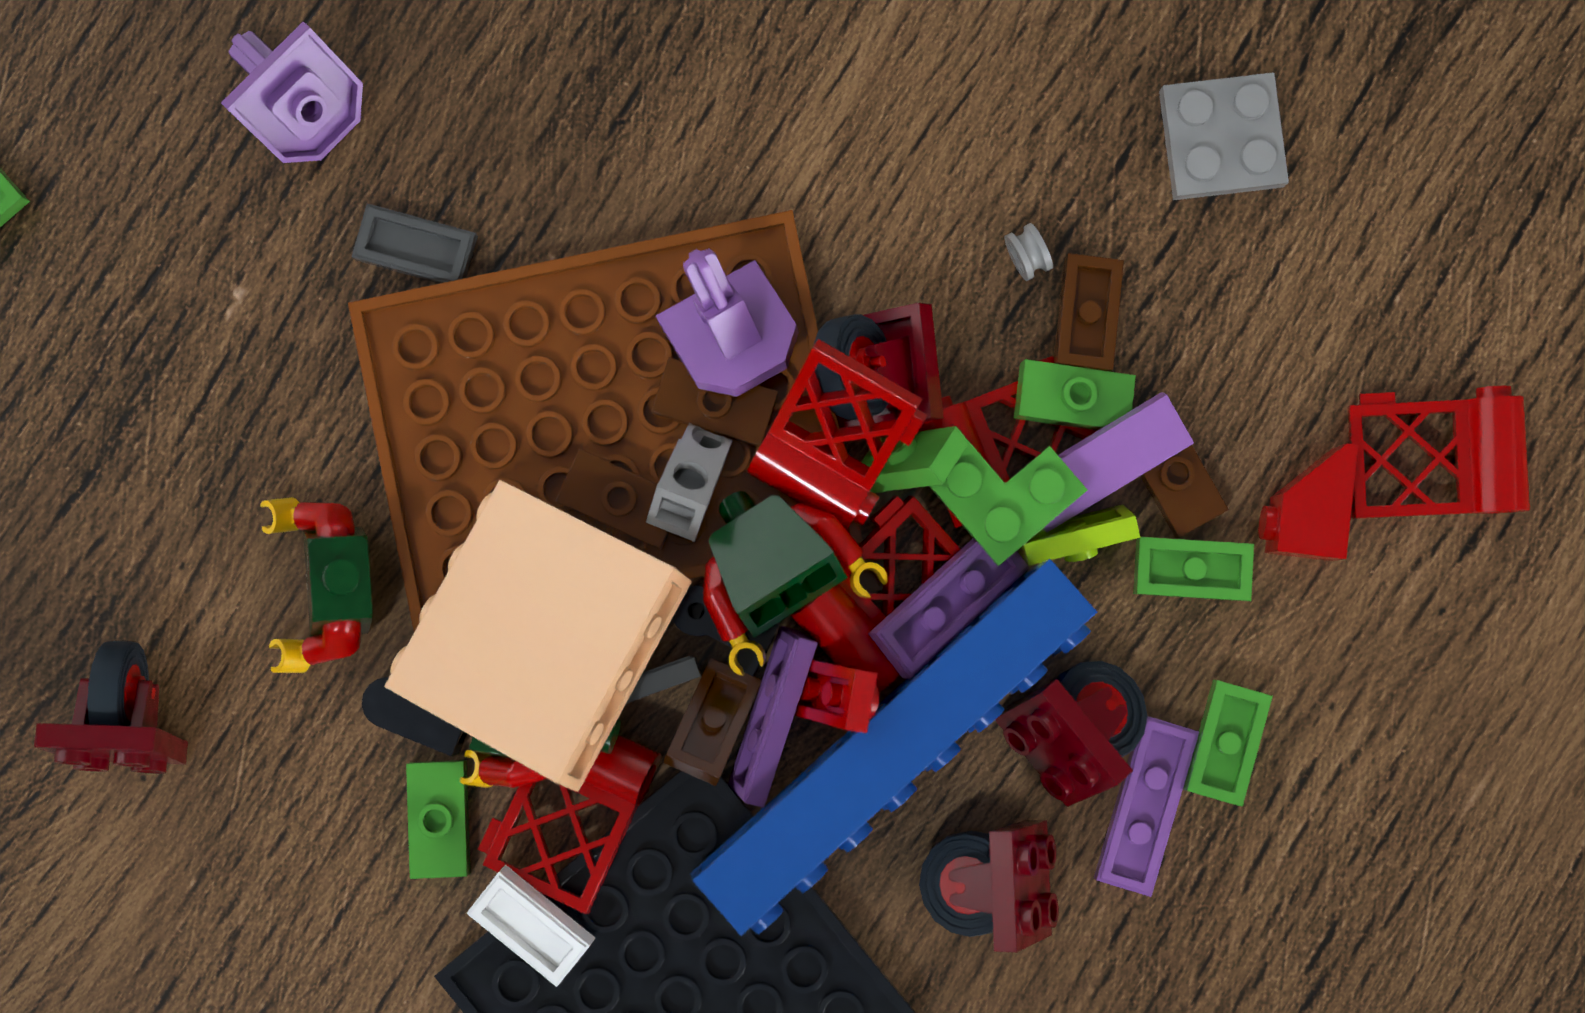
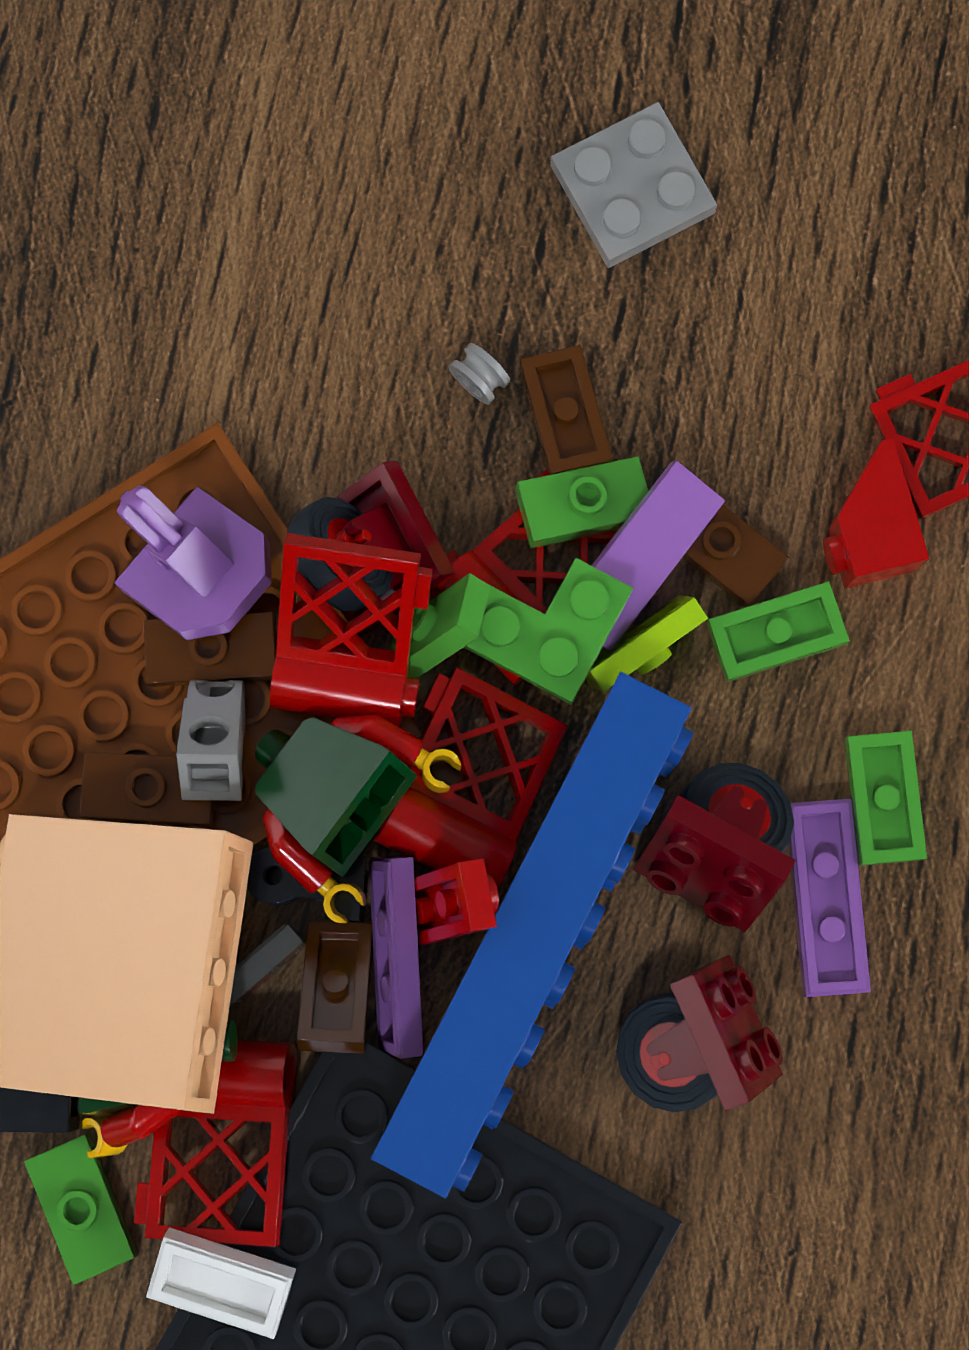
camera: 20 degrees left, 5 degrees down
(944, 607) = (533, 769): medium lavender tile -> none

